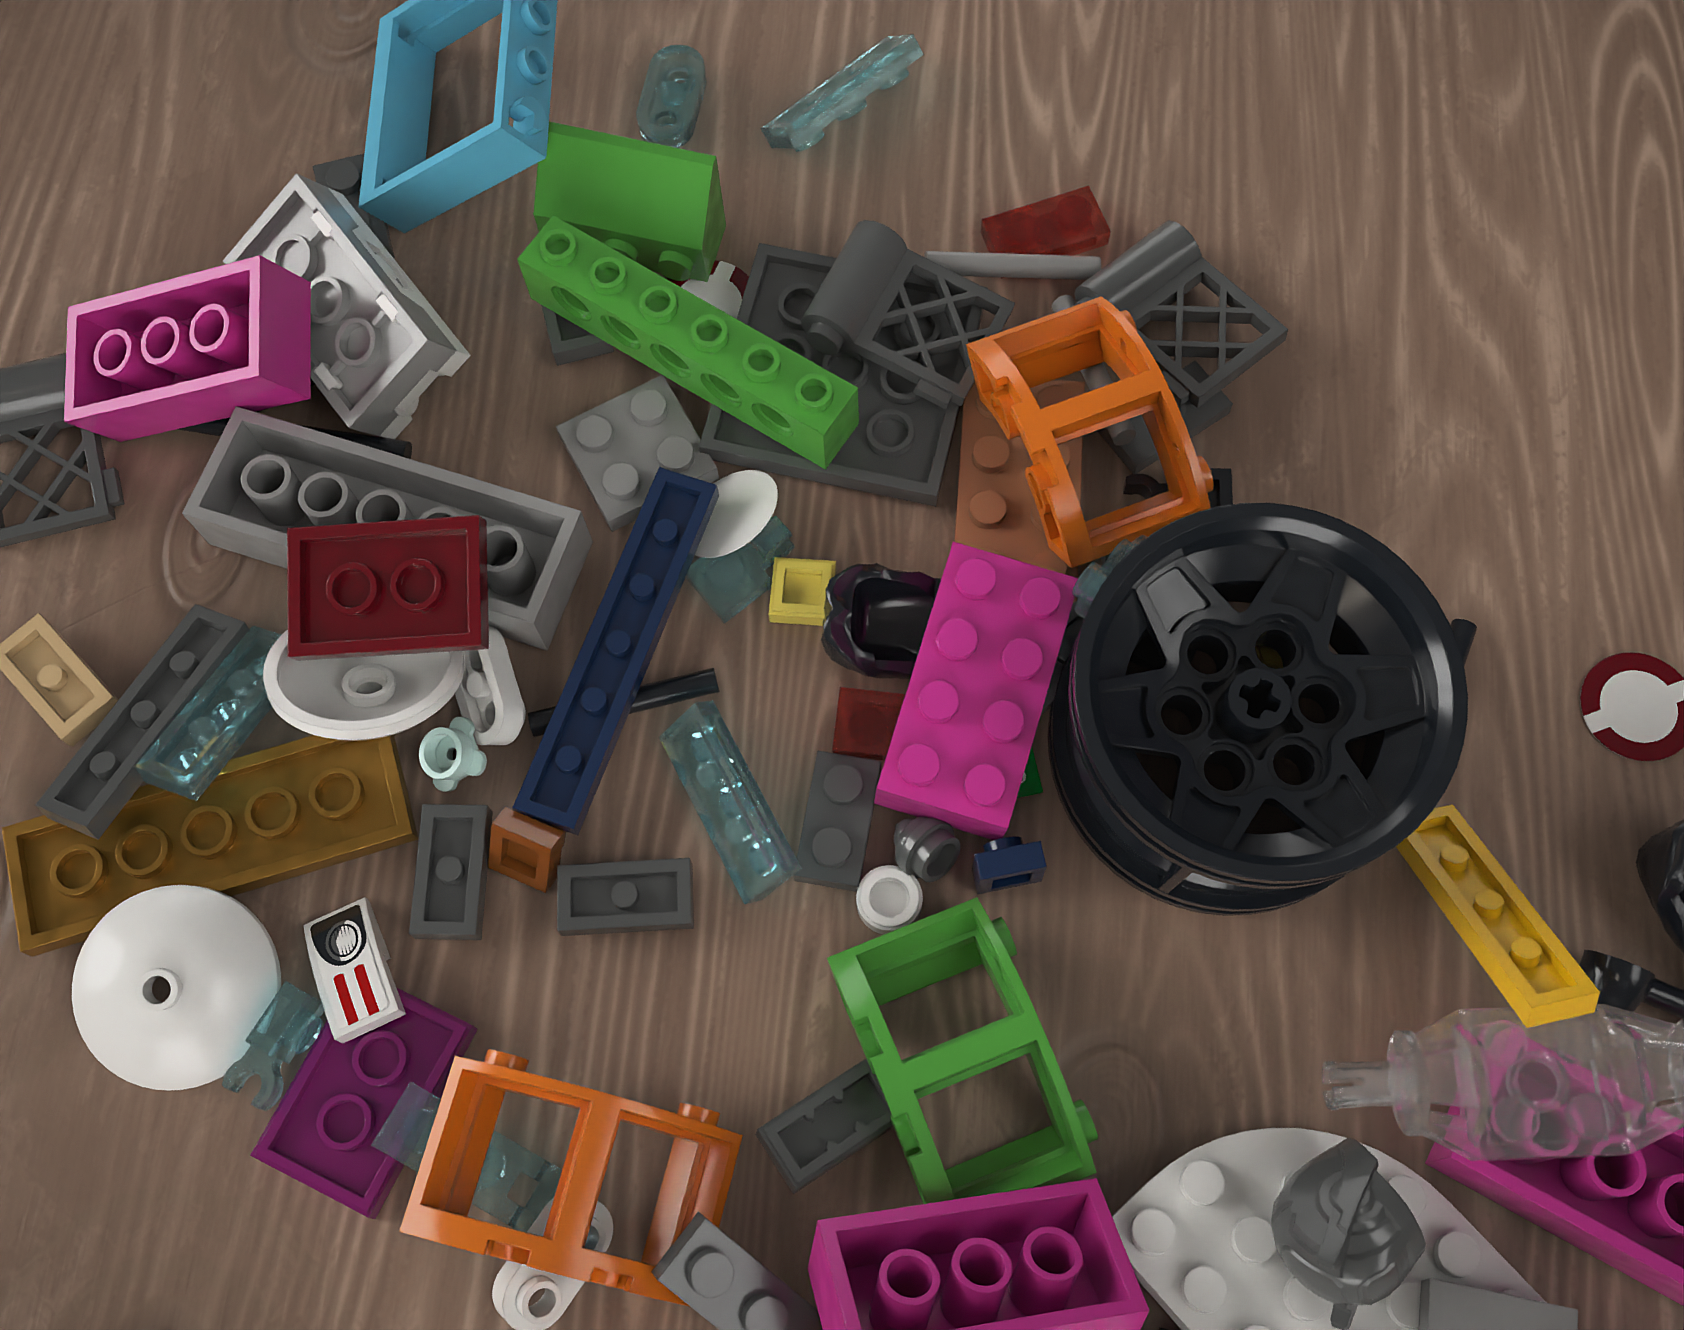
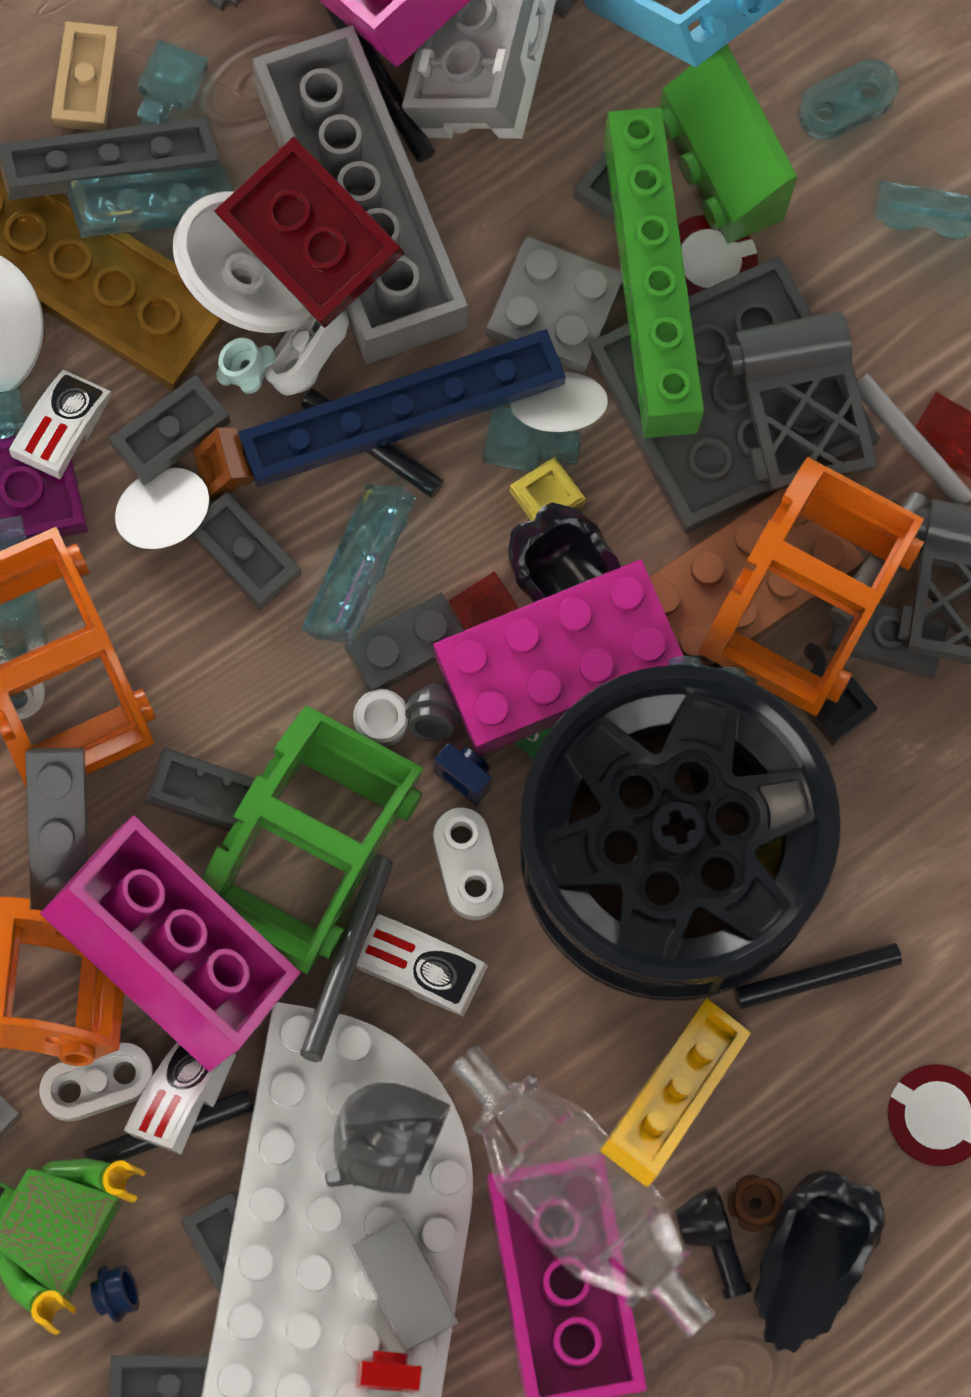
camera: 40 degrees right, 5 degrees up
(132, 610) = (169, 81): none -> clear light blue plate
(521, 941) = (163, 509): none -> white sticker
(1093, 934) = (468, 862): none -> white plate
(1121, 1135) = (346, 959): none -> dark grey bar
(1163, 1054) = (421, 965): none -> slope
(1635, 914) = (740, 1202): none -> reddish brown plate

